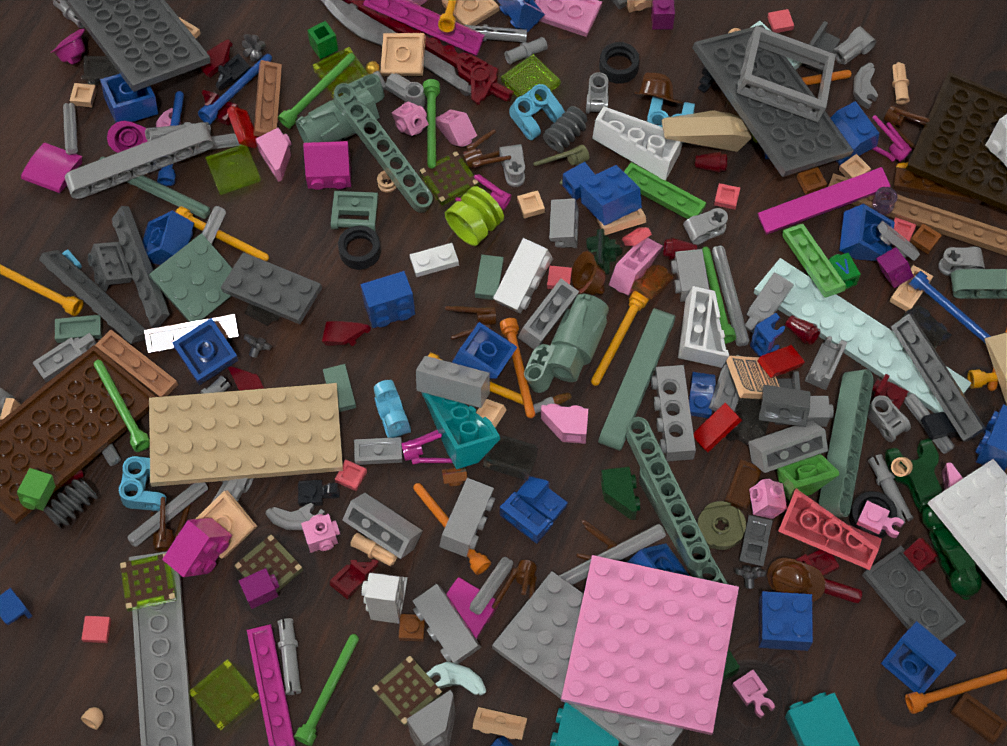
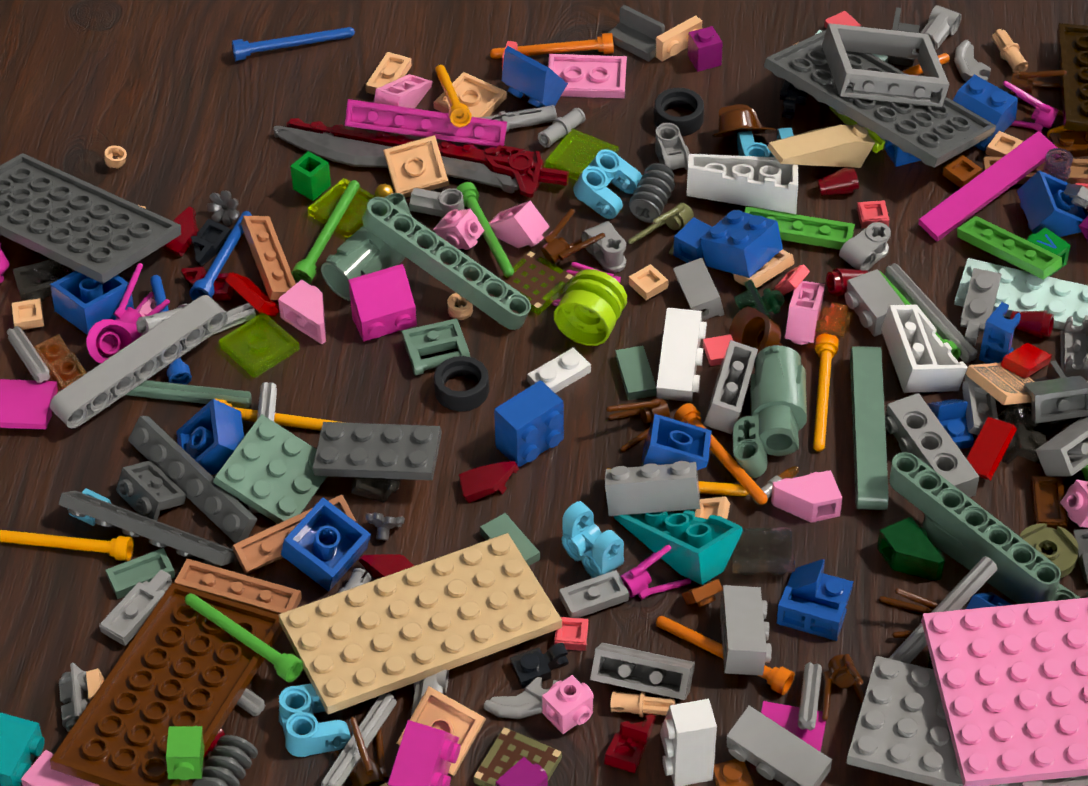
camera: 20 degrees left, 15 degrees down
(90, 140) = (62, 364): none -> clear orange slope
(149, 120) = (131, 315): none -> dark pink plant

